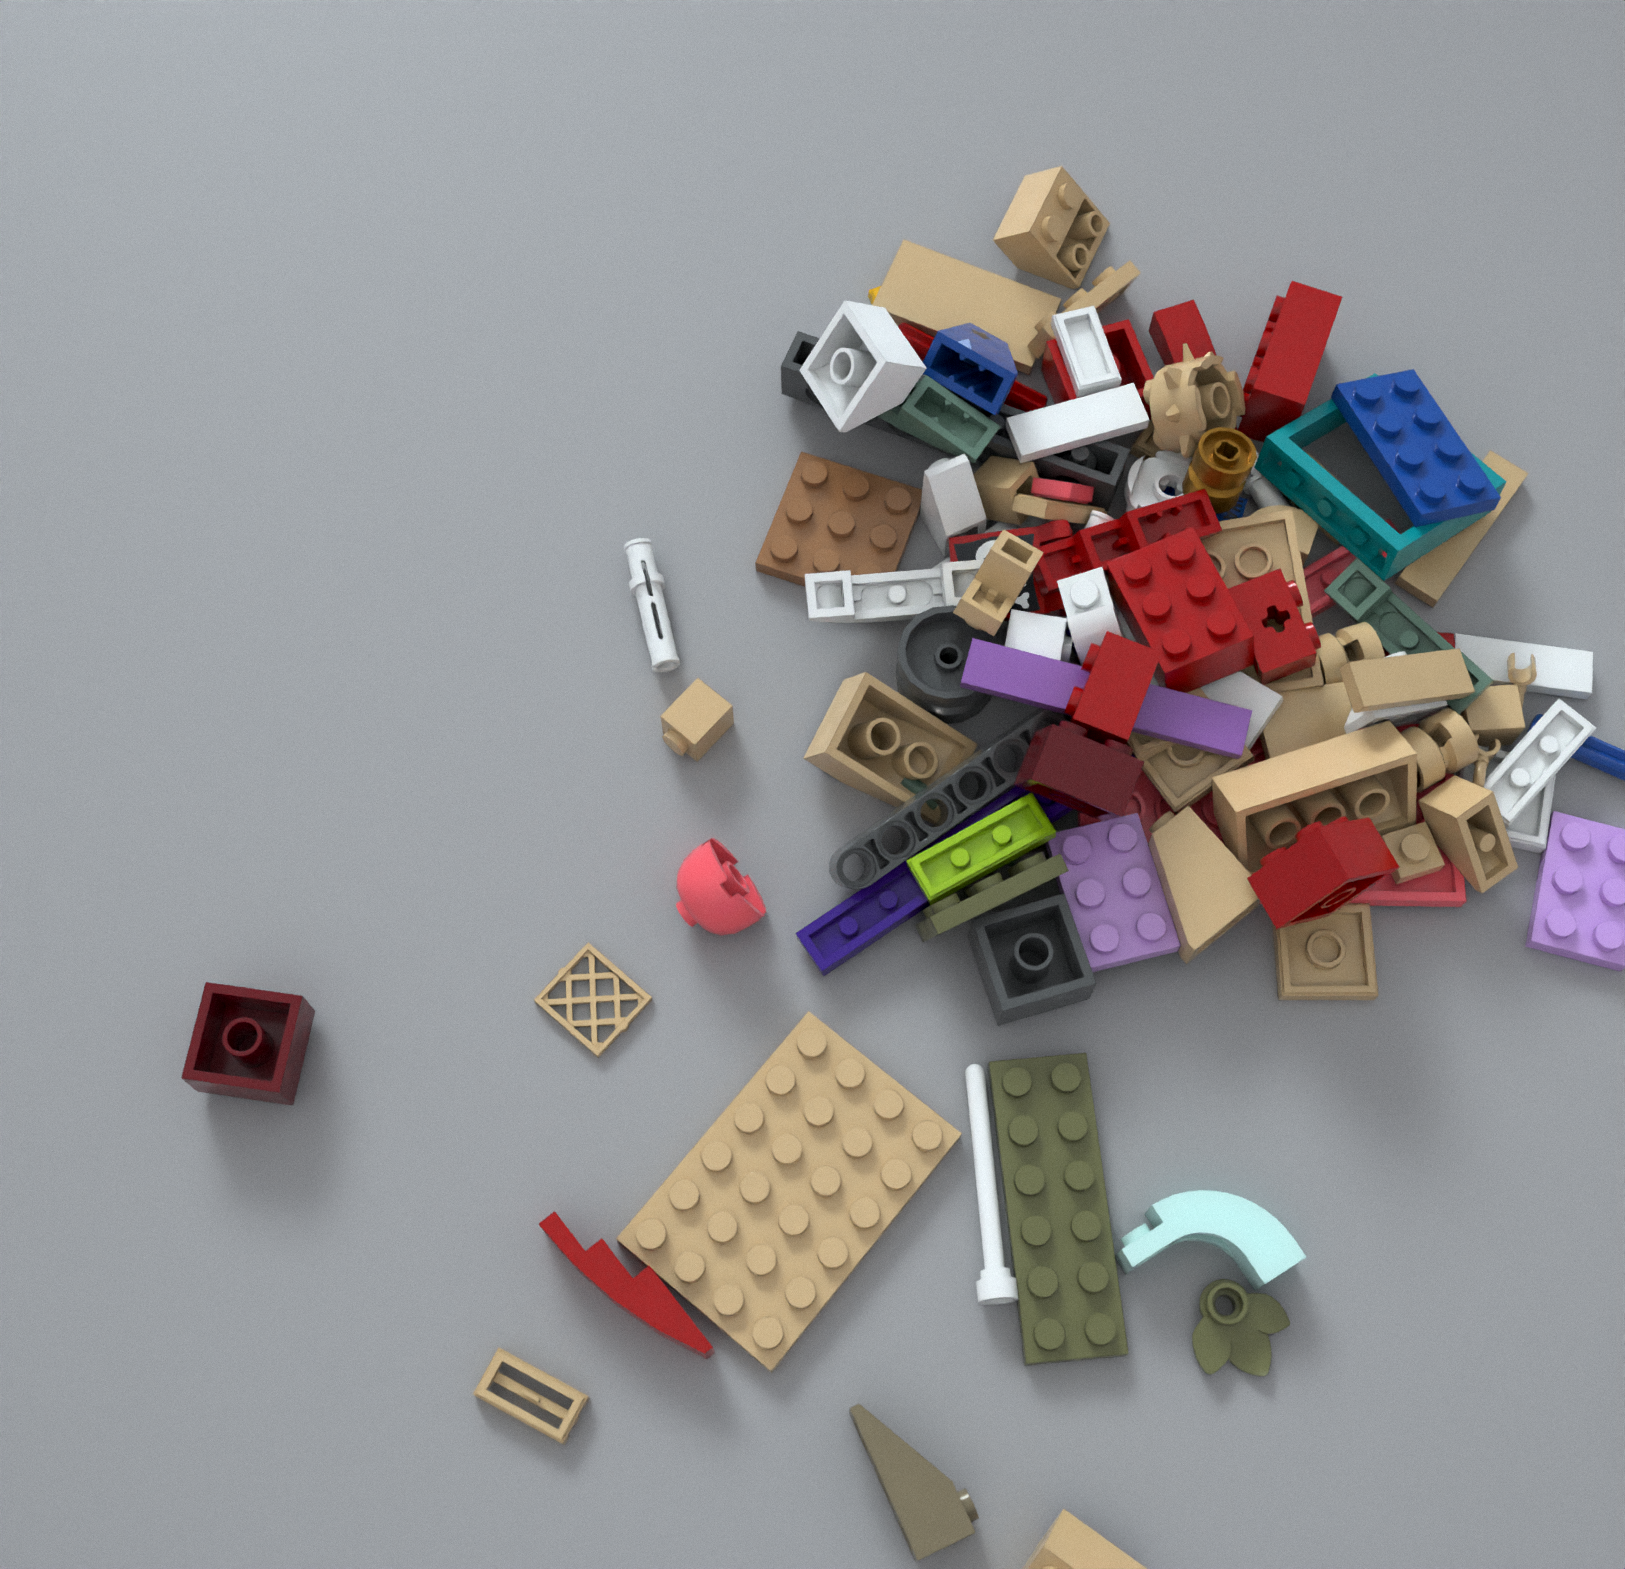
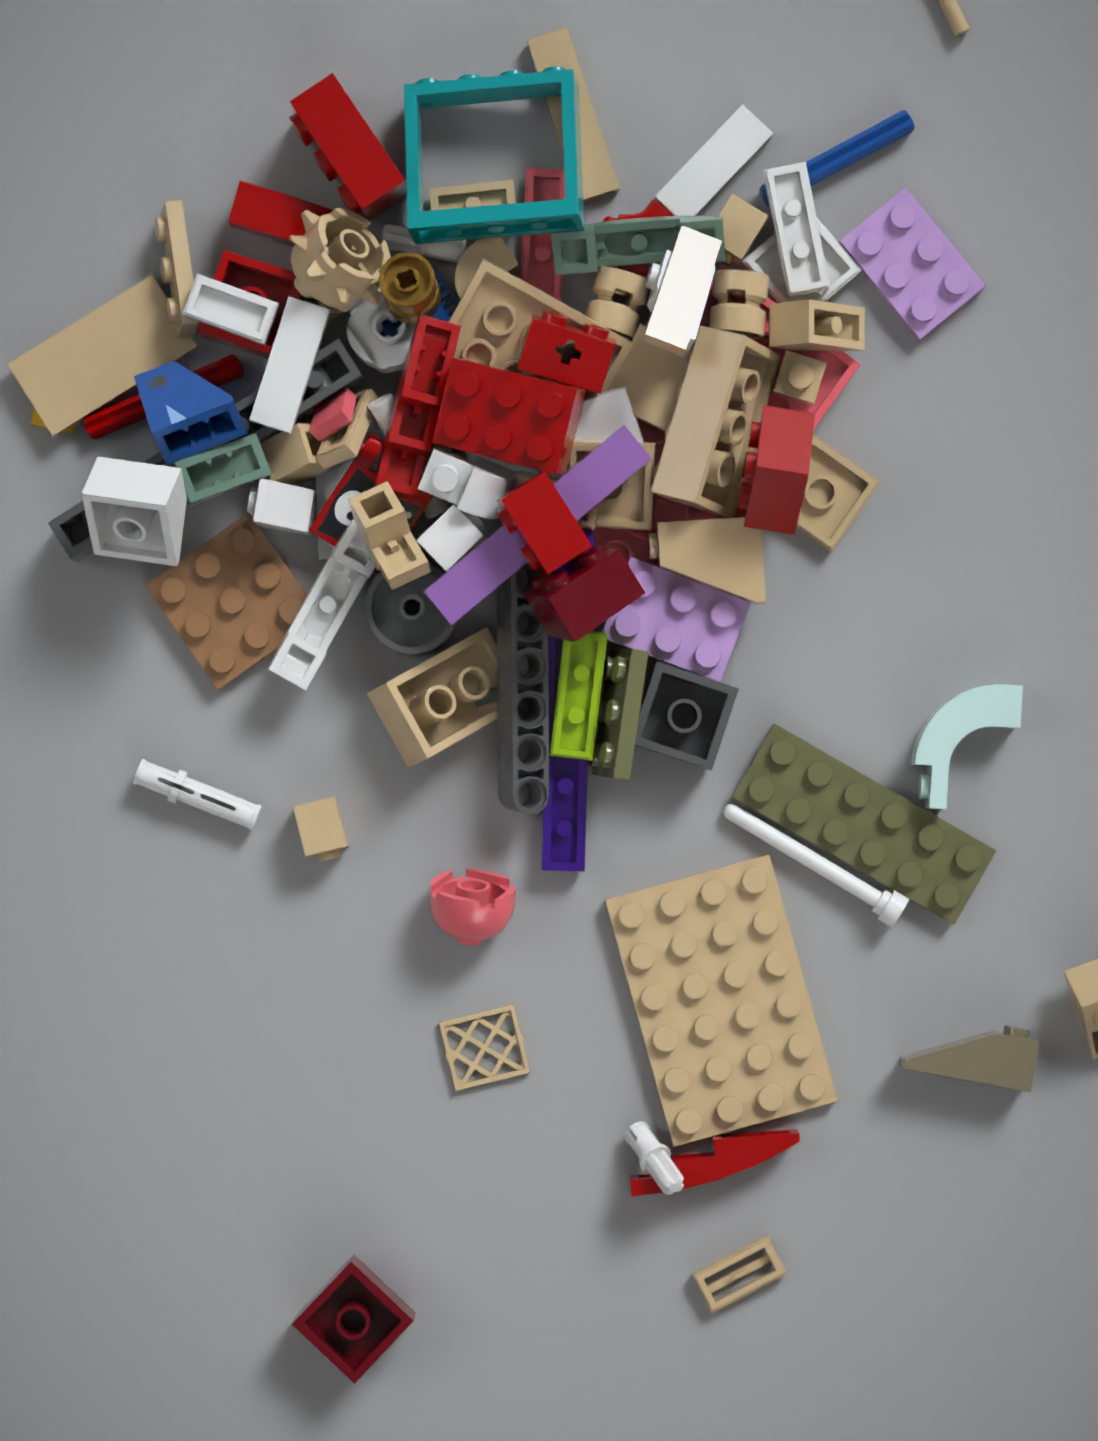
camera: 55 degrees left, 20 degrees up
(592, 1221) = (654, 1158): none -> white axle
(1052, 228) = (82, 233): tan slope -> none
(1237, 1336) = (1036, 763): olive plate -> none
(1415, 448) = (496, 119): blue plate -> none
(1483, 760) = (769, 268): tan hand -> none
(1521, 677) = (726, 181): tan hand -> none

